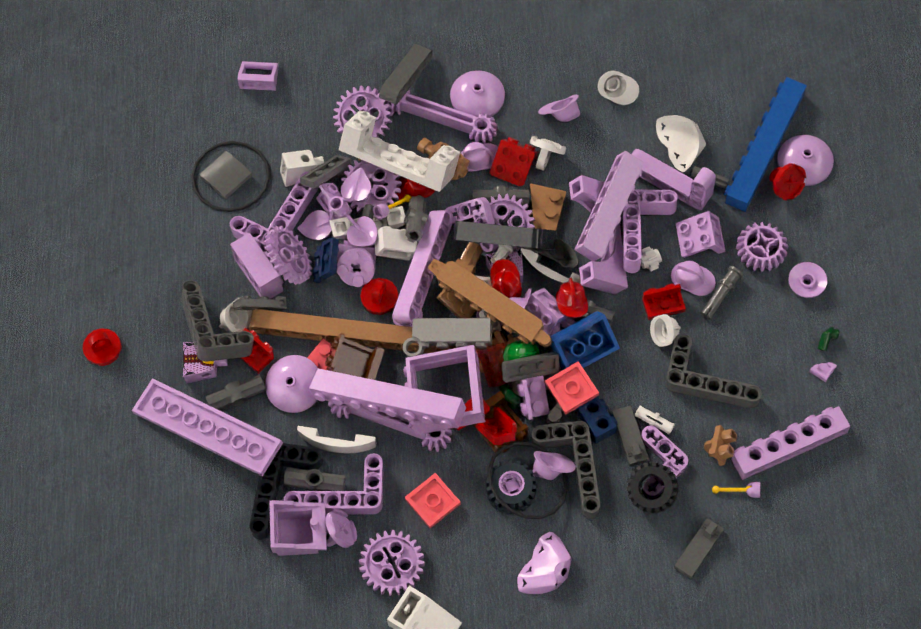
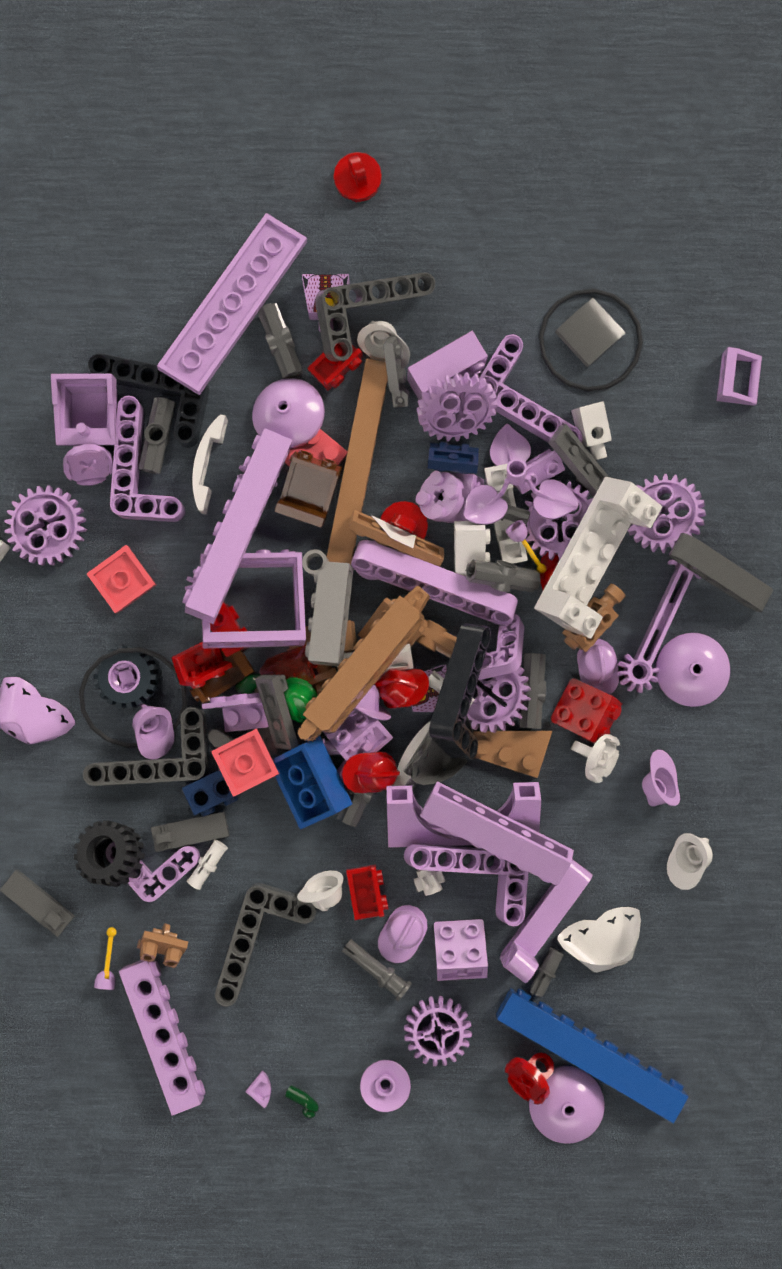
camera: 90 degrees right, 20 degrees up
(387, 292) = (397, 533): none -> white sticker
(390, 294) = (367, 526): none -> medium nougat plate

